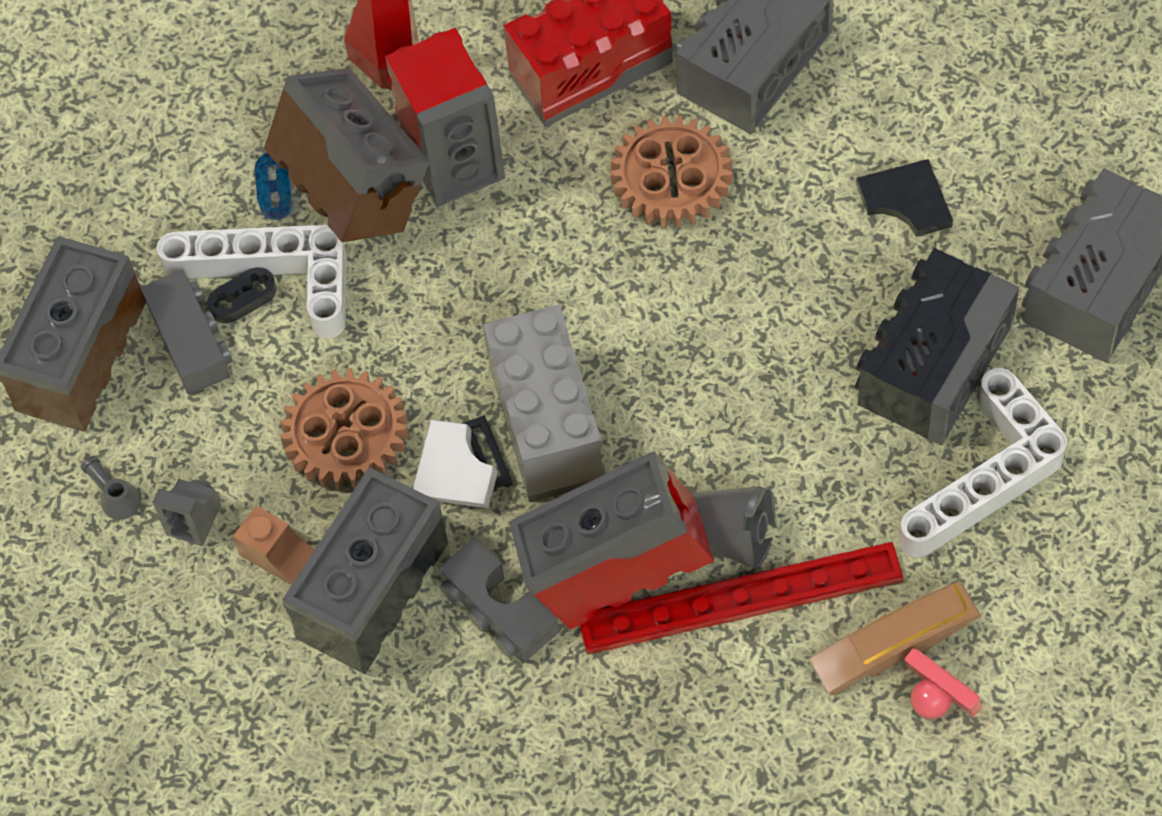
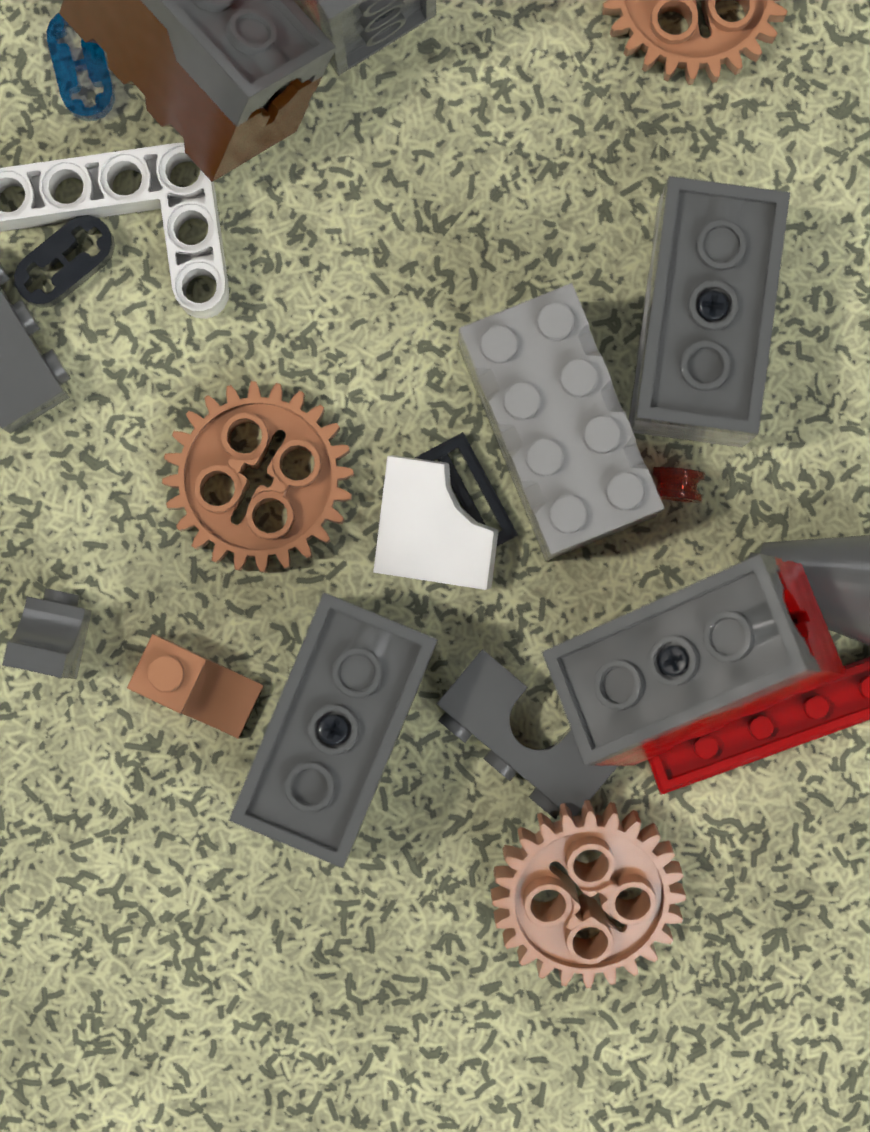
camera: 10 degrees left, 25 degrees up
(496, 726) = (549, 928): none -> nougat gear
(620, 454) = (678, 484): none -> clear red bush
(649, 343) = (709, 312): none -> dark grey piece

